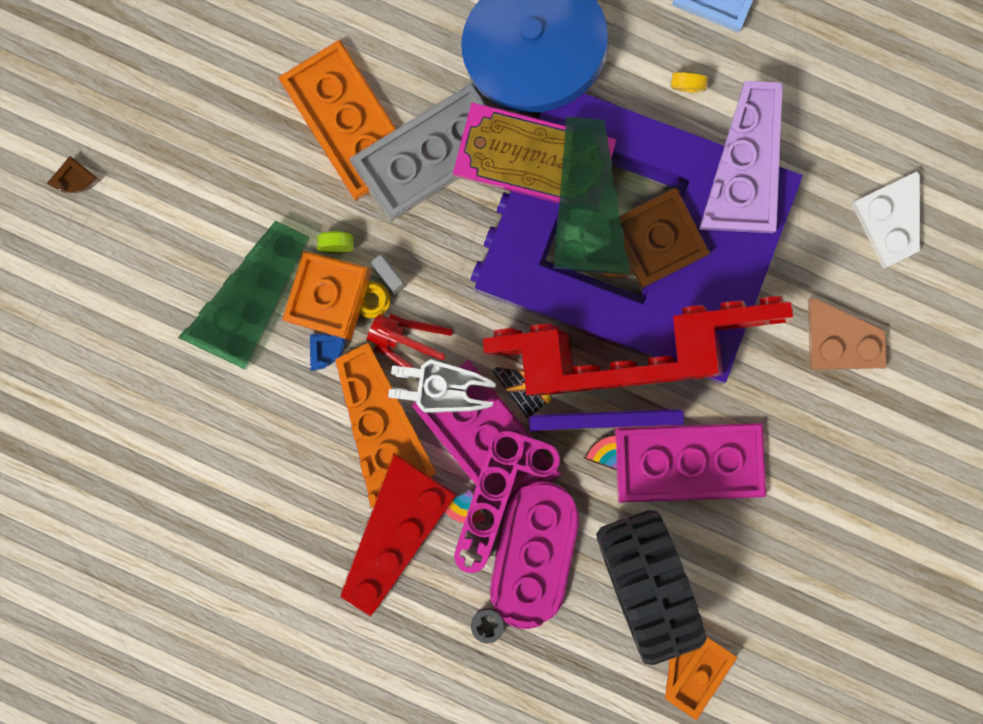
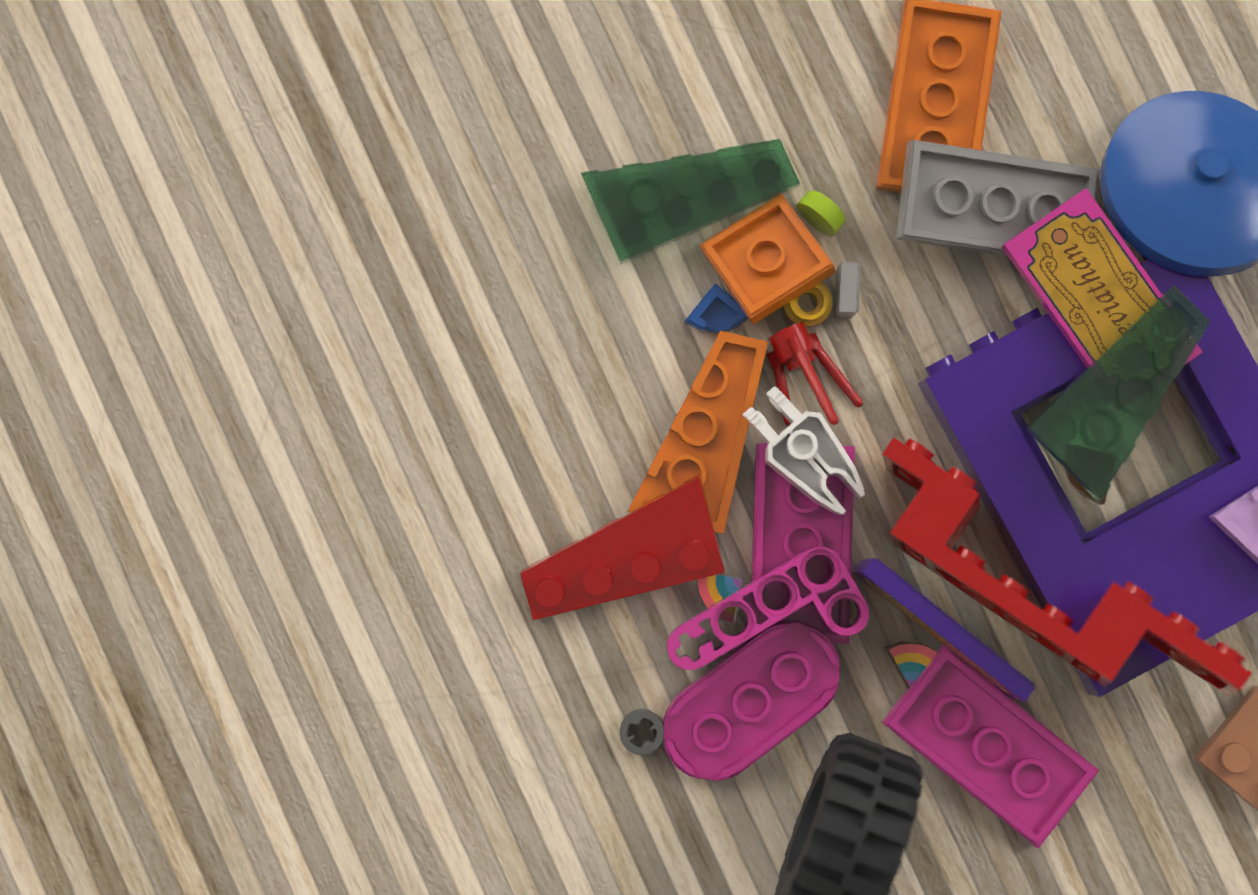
camera: 45 degrees right, 0 degrees up
(515, 385) = (879, 520): black sticker -> none
(661, 238) = (1162, 493): reddish brown tile -> none

